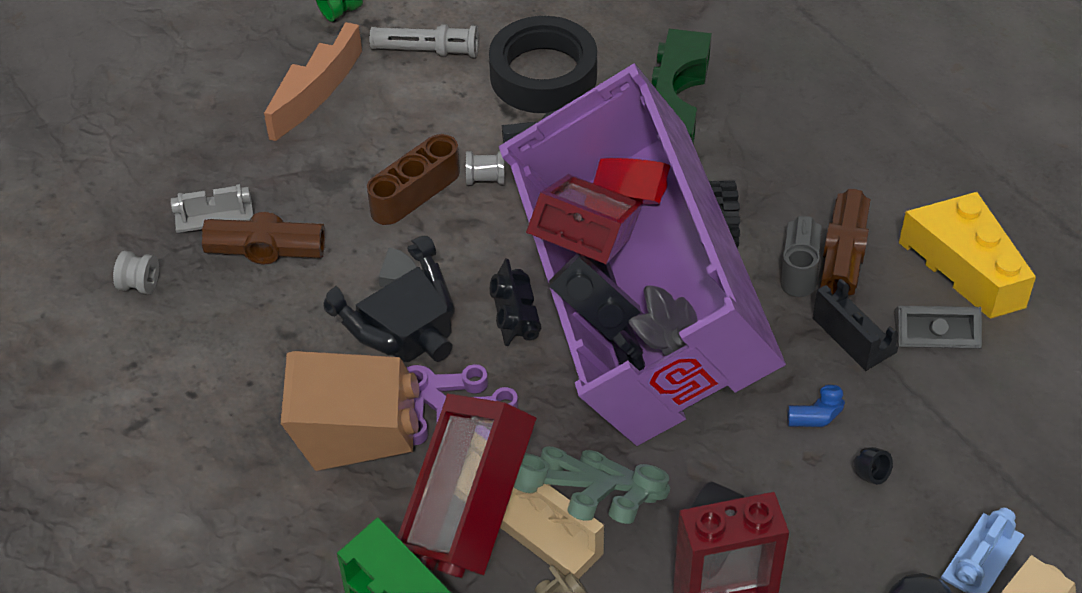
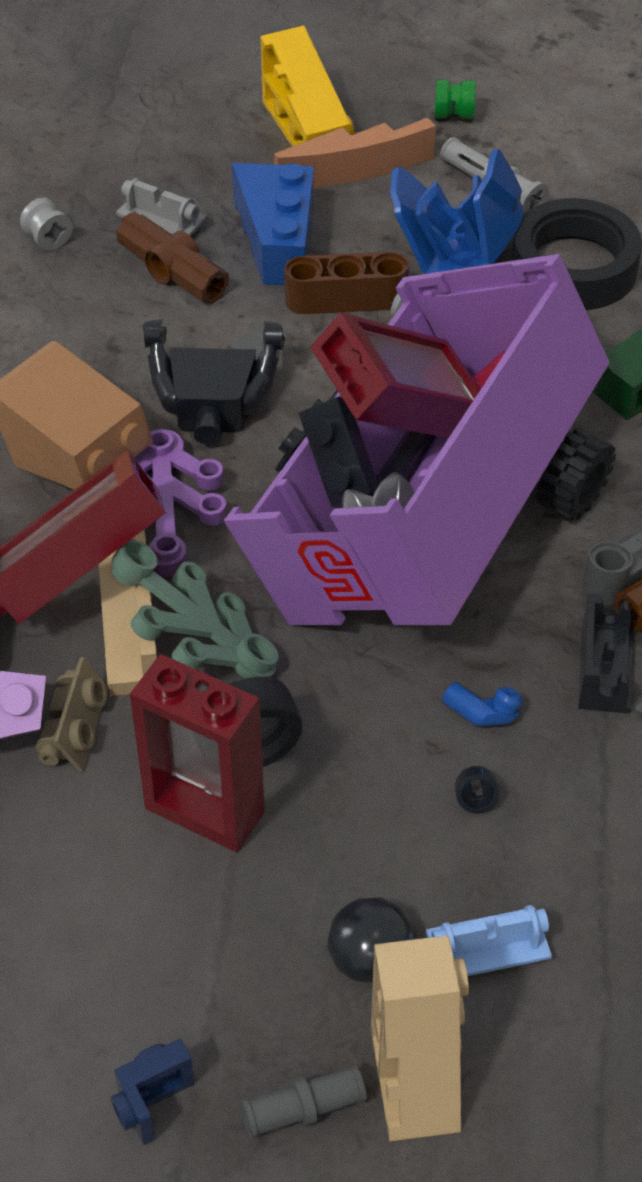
camera: 40 degrees right, 0 degrees up
(228, 56) = (298, 87): none -> yellow wedge
(313, 159) = (275, 213): none -> blue wedge
(461, 96) = (461, 236): none -> blue piece

